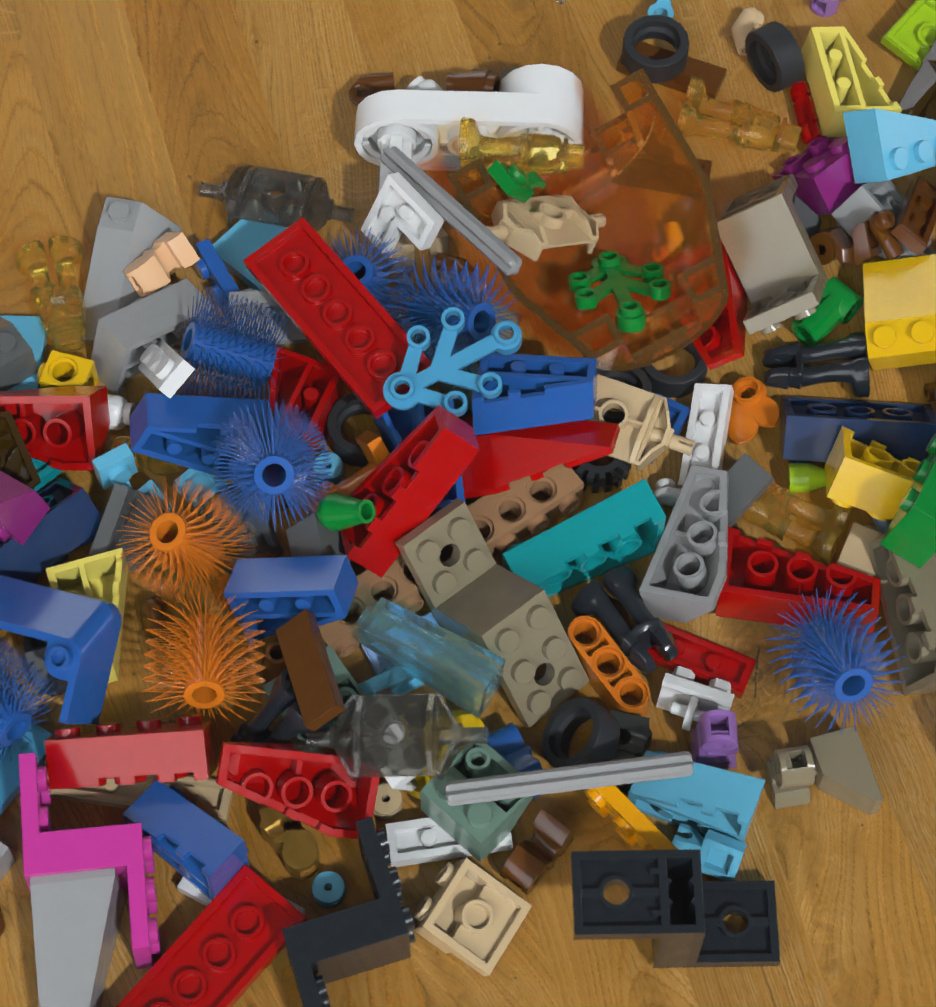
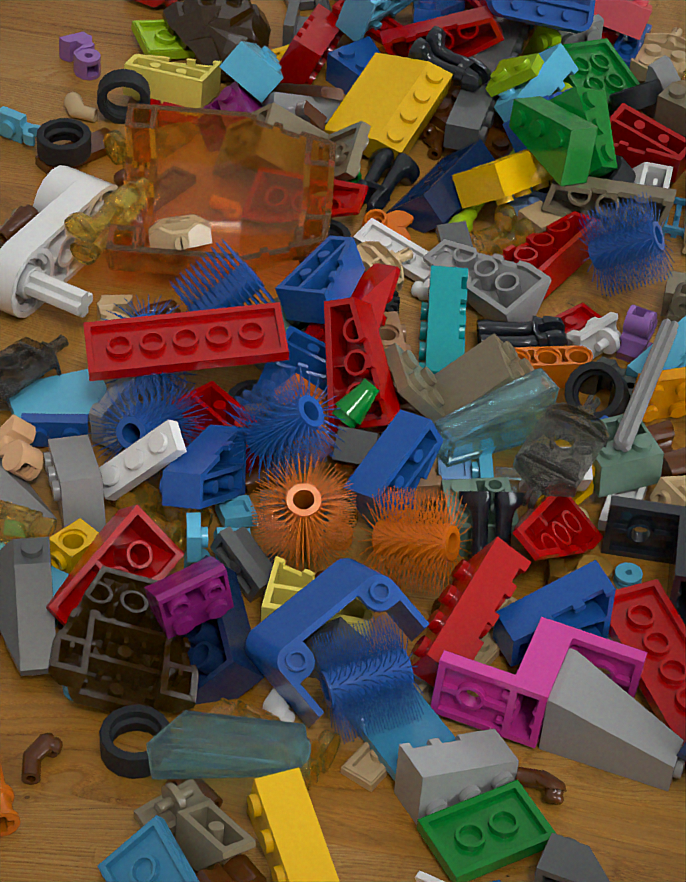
camera: 65 degrees left, 20 degrees down
(310, 670) = (476, 472): reddish brown tile -> none
(400, 211) = (109, 282): white plate -> none
(448, 367) = (288, 319): dark azure plant -> none
(453, 212) = (139, 255): light grey axle -> none
(515, 181) = (142, 218): green plate -> none
(610, 269) = (259, 220): green plant -> none
(881, 226) = (311, 94): reddish brown arm -> none

